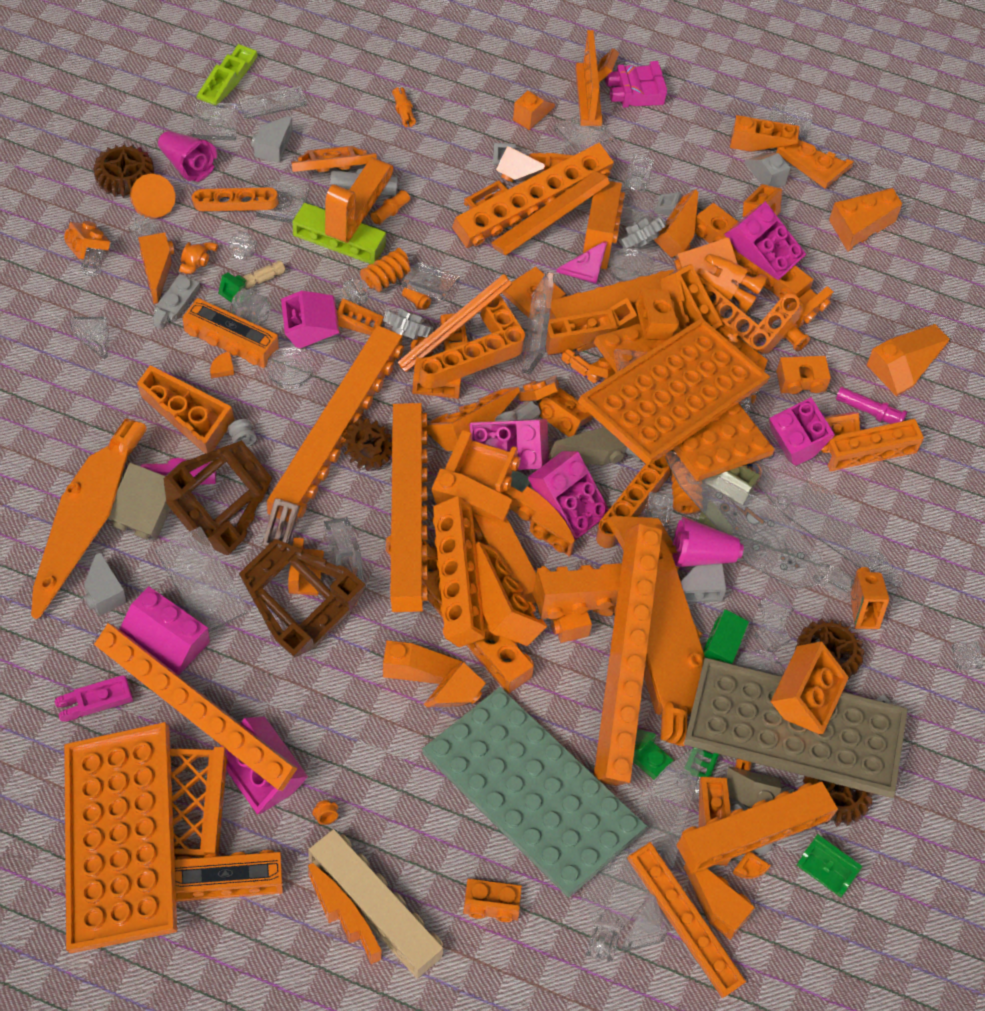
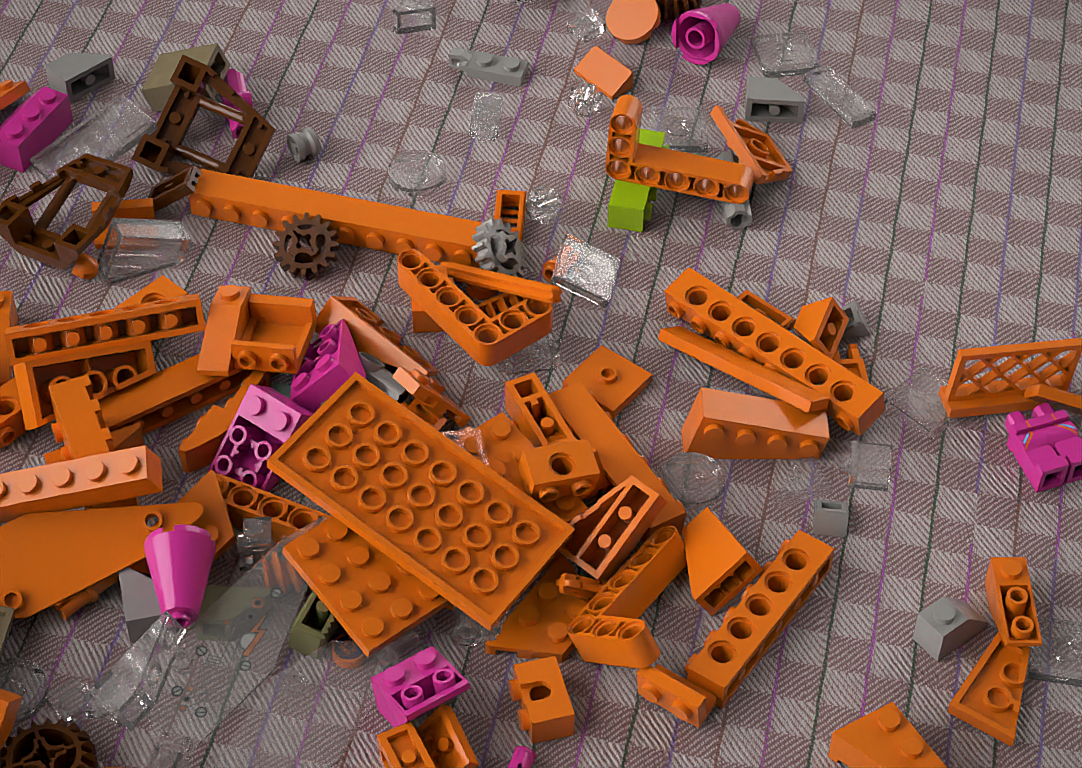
camera: 85 degrees right, 10 degrees down
(83, 512) = (254, 45): orange wing -> none
(156, 258) = (533, 39): orange slope -> none
(189, 410) = (323, 91): orange wedge -> none
(195, 256) = (557, 64): orange piece -> none
(208, 229) = (605, 72): none -> orange slope
(222, 366) = (405, 118): orange tile -> none
(227, 75) = (851, 46): lime slope -> none
(230, 332) = (449, 111): orange brick -> none
(231, 285) = (520, 104): green tile -> none
(235, 196) = (658, 84): orange beam -> none
(264, 274) = (553, 129): tan axle -> none
(309, 317) = (483, 164): dark pink slope -> none
(386, 270) = (587, 226): orange piece -> none
(390, 207) = (702, 220): orange pin -> none
(404, 107) = (886, 211): orange pin -> none
(407, 509) = (154, 278): orange brick -> none
(531, 109) = (943, 333): orange slope -> none
(538, 323) = (553, 365): clear tile -> none
(586, 265) = (667, 423): dark pink tile -> none
(642, 231) = (743, 469): light grey gear -> none
(679, 226) = (772, 516): orange slope -> none
(725, 637) = (57, 636): green hinge -> none
(728, 278) = (680, 580): orange piece -> none
(763, 193) = (851, 611): orange brick -> none
(766, 241) = (765, 609): dark pink slope -> none
(783, 582) = (139, 676): none -> clear slope
(797, 338) = (616, 686): orange bush -> none

